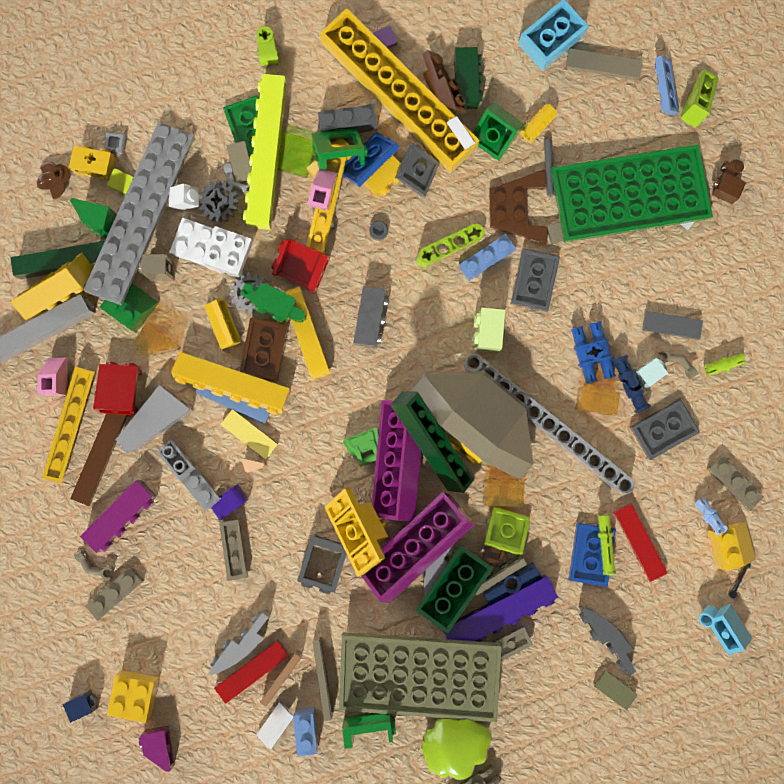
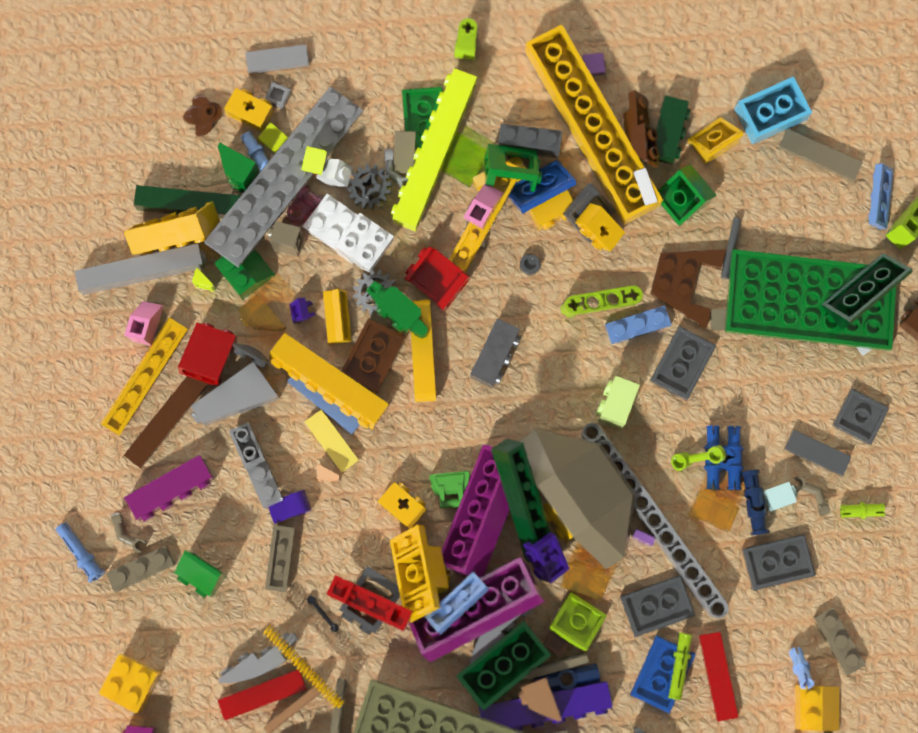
camera: 15 degrees right, 5 degrees down
(62, 599) = (85, 559): none -> medium blue pin
(80, 705) = (72, 677): dark blue brick -> none
(94, 326) = (201, 281): none -> neon yellow slope
(105, 110) = (277, 59): none -> light grey tile
(109, 197) = (255, 150): none -> light blue pin
(161, 190) = (314, 160): none -> neon yellow slope
(162, 379) = (258, 357): none -> dark grey dish
(165, 230) = (304, 202): none -> clear pink piece
(166, 583) = (199, 574): none -> green slope
(188, 328) = (299, 310): none -> dark purple tile
(271, 577) = (312, 600): none -> black hinge
(279, 640) = (299, 666): none -> yellow piece
(316, 474) = (390, 501): none -> yellow brick
(322, 568) = (369, 603): none -> red slope
(398, 548) = (457, 603): none -> medium blue plate
(430, 180) = (599, 227): none -> yellow brick
(466, 485) = (547, 558): none -> dark purple bracket
(494, 610) = (540, 699): none -> medium nougat slope
(509, 75) = (715, 139): none -> yellow slope
(538, 123) = (732, 198): yellow axle -> none
(543, 441) = (643, 537): none -> medium lavender tile
(559, 364) = (684, 460): none -> lime bar
(571, 497) = (657, 606): none -> dark grey tile
(678, 170) = (865, 289): none -> dark green slope
(700, 283) = (860, 416): none -> dark grey tile

